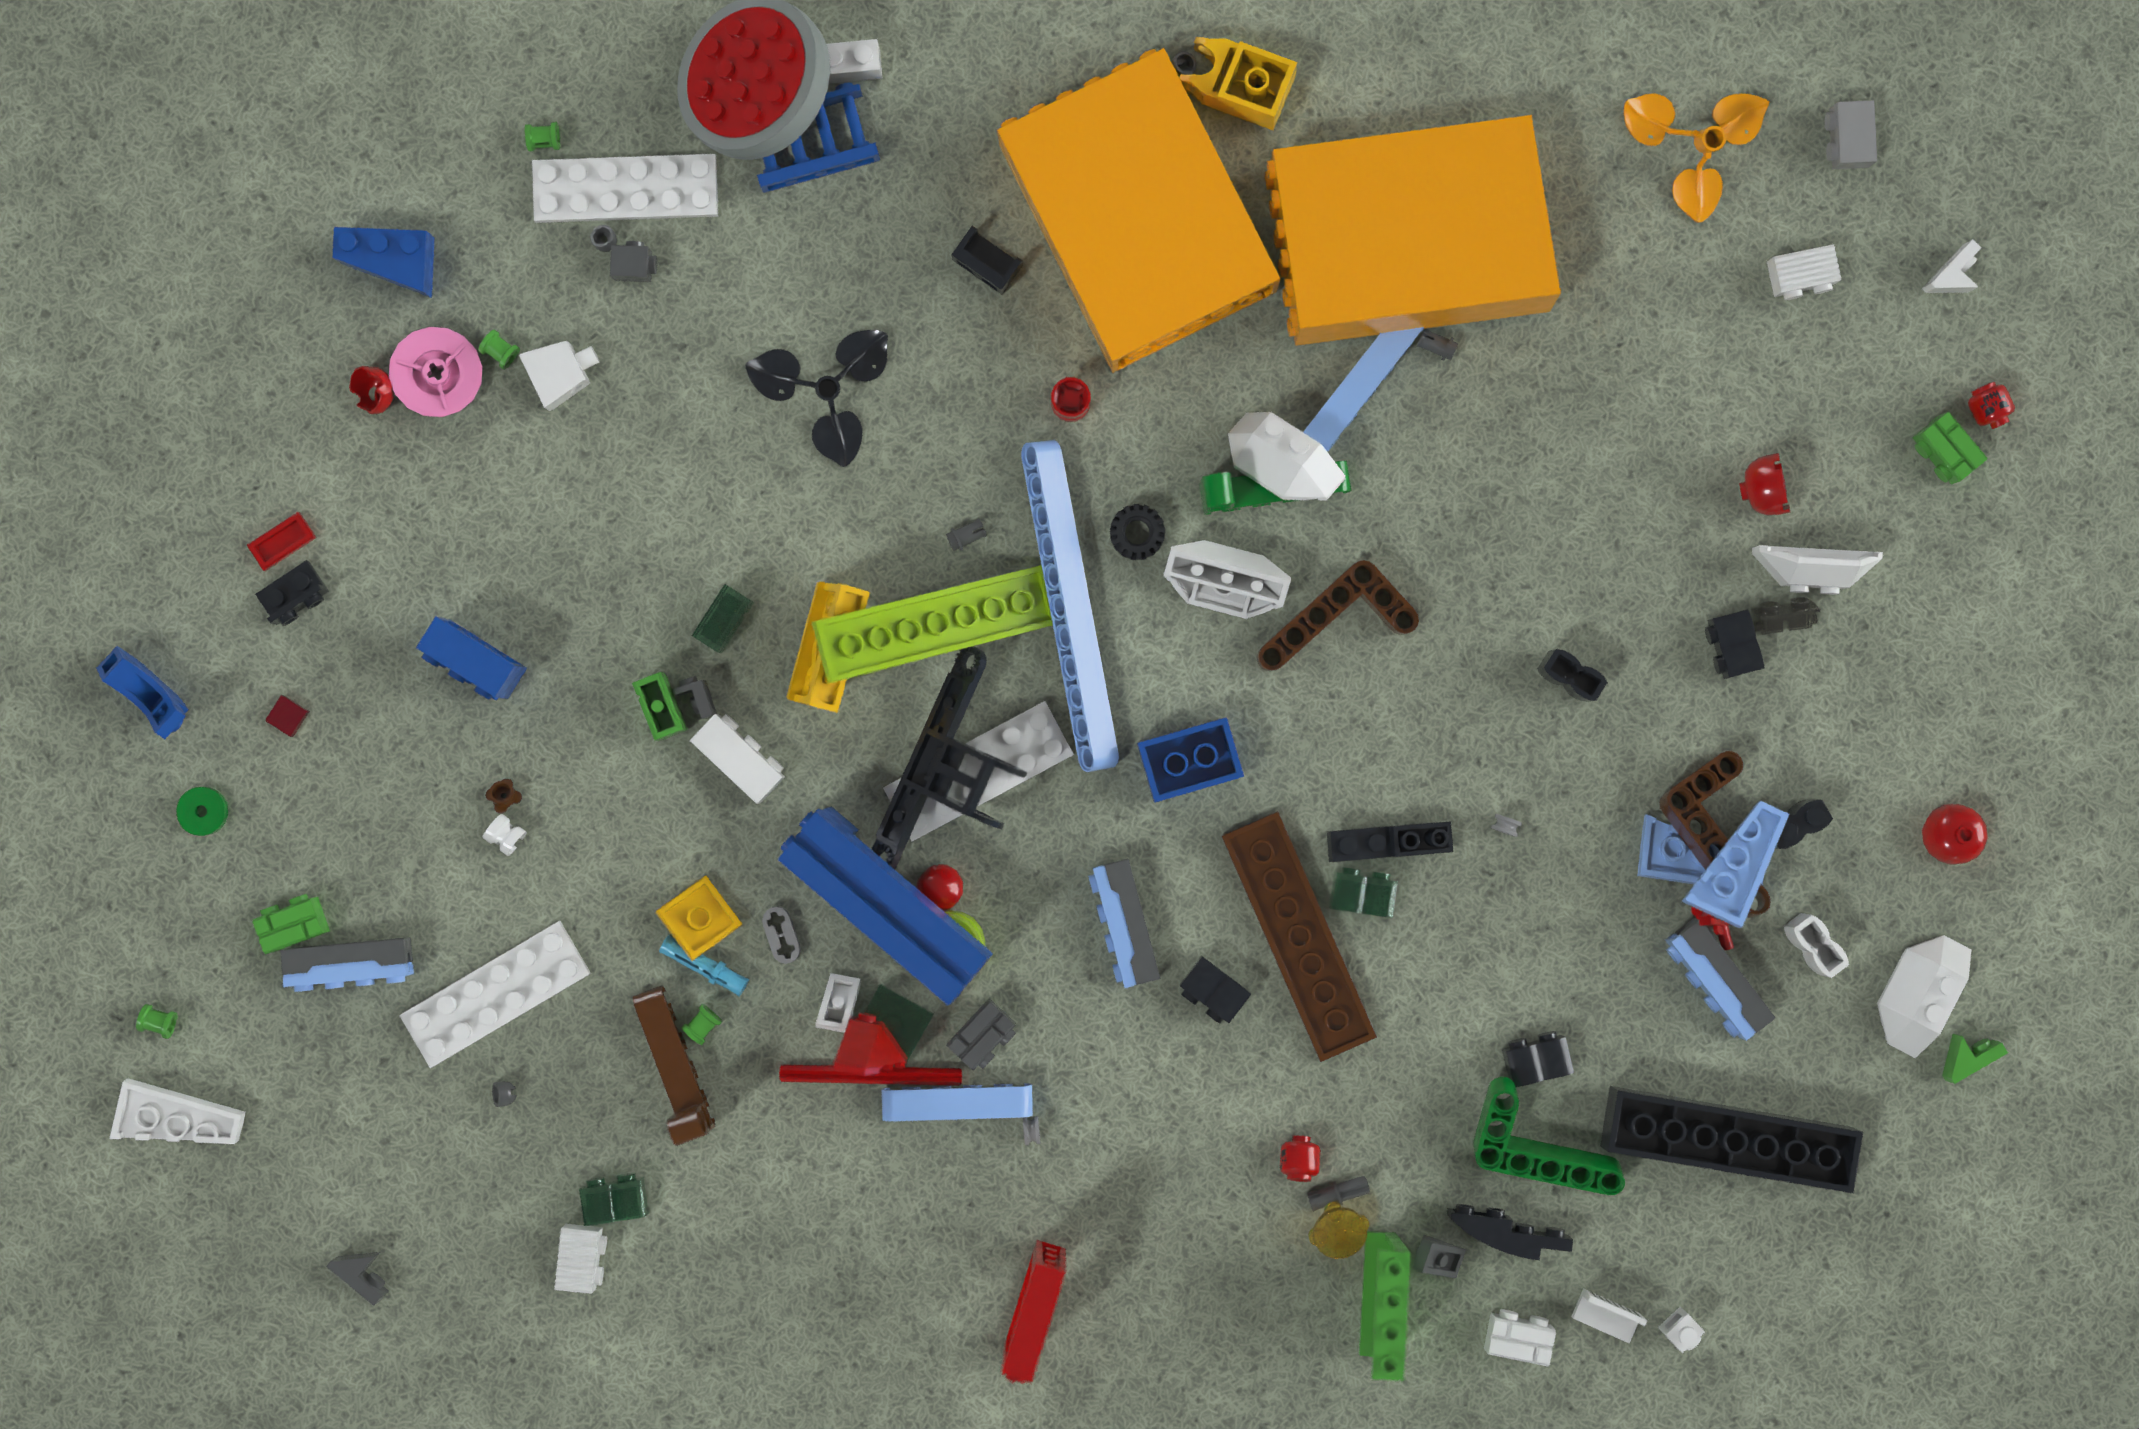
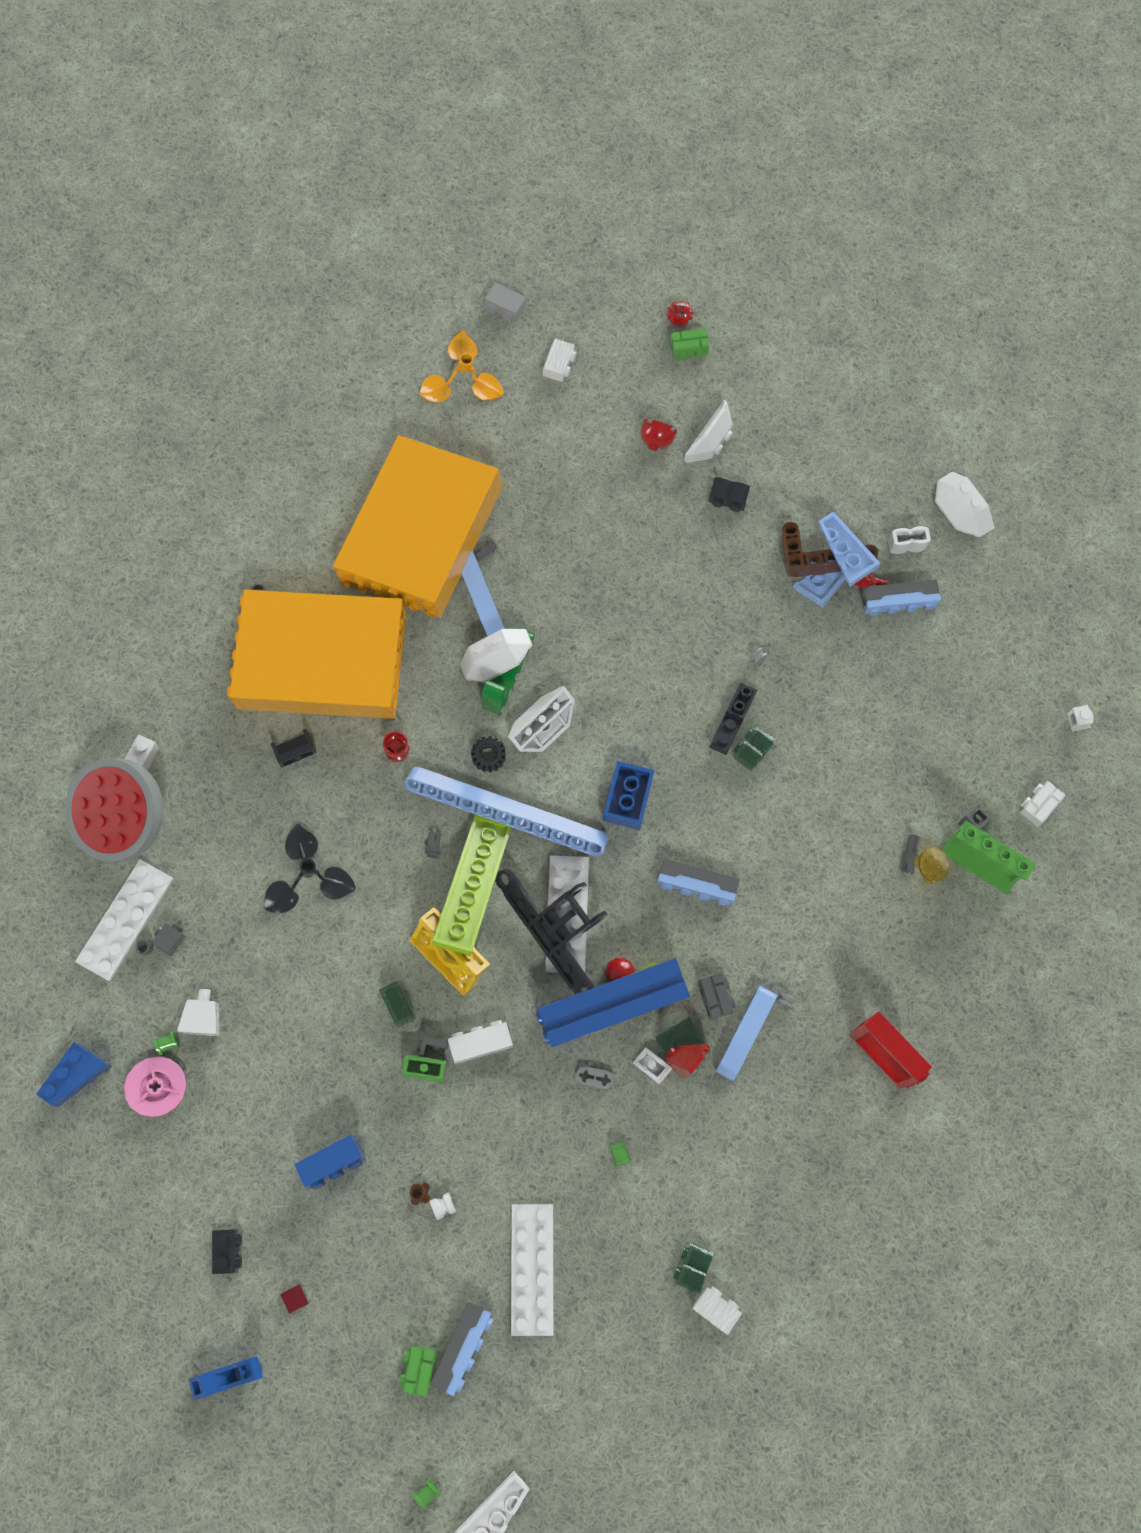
camera: 60 degrees left, 15 degrees down
(188, 811) = (328, 1387): green piece -> none
(281, 541) = (191, 1240): red tile -> none
(353, 1272) = (647, 1458): dark grey slope -> none
(362, 382) = (137, 1123): red hair -> none
(502, 1093) = (597, 1298): dark grey hinge -> none
(542, 136) = (66, 948): bright green bush -> none
(678, 1074) = (634, 1183): reddish brown beam -> none
(698, 918) = (558, 1119): yellow plate -> none
(705, 966) = (586, 1133): medium azure pin -> none
(832, 159) = (185, 798): blue fence -> none
(900, 1076) = (703, 1074): red axle -> none
(1214, 990) = (762, 855): black brick -> none
(1234, 78) = (286, 565): yellow brick -> none
(1299, 936) = (757, 795): reddish brown plate -> none
(1300, 1159) = (881, 863): red head -> none
(1332, 610) = (591, 678): reddish brown beam -> none
(1496, 1231) = (980, 779): black slope -> none
(1537, 1152) = (945, 738): green beam -> none
(1538, 1059) = (894, 710): black brick -> none
(1565, 669) = (702, 578): black brick -> none
(1607, 1316) = (1052, 752): white panel -> none
(1731, 1139) = (989, 637): black brick -> none
(1798, 614) = (730, 457): clear smoke hinge -> none
(1804, 818) = (841, 505): black brick -> none
(1952, 276) = (603, 296): white slope -> none
(1954, 834) = (888, 446): red cylinder -> none
(1963, 1062) = (1009, 501): bright green slope -> none

